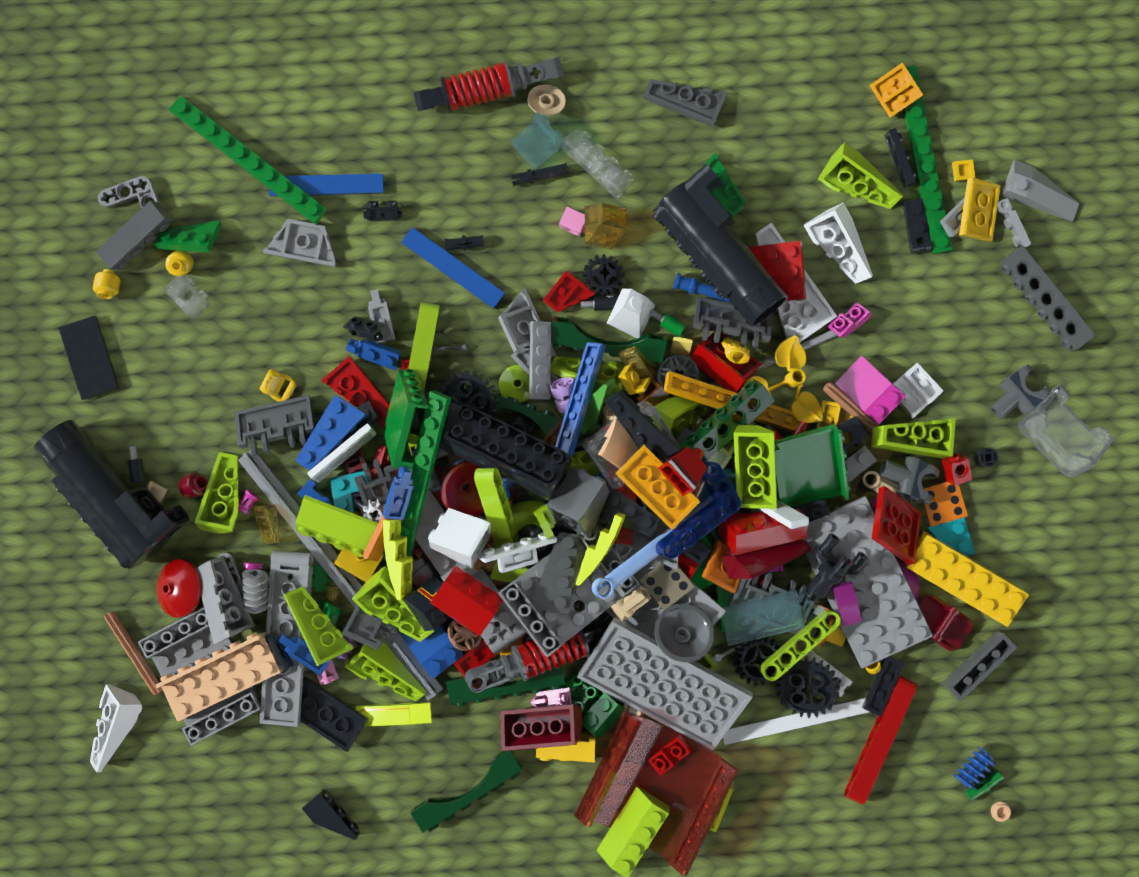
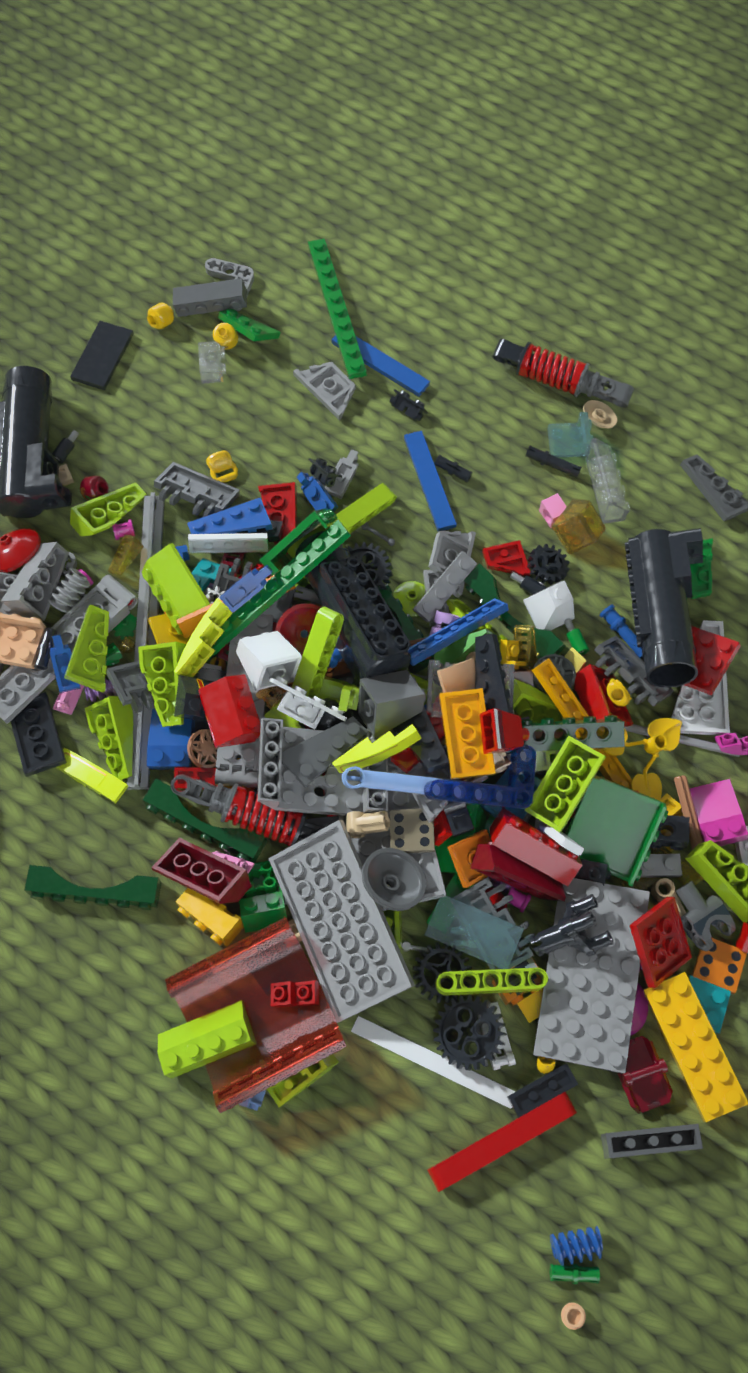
camera: 35 degrees right, 20 degrees down
(847, 603) = (563, 975): magenta slope -> none

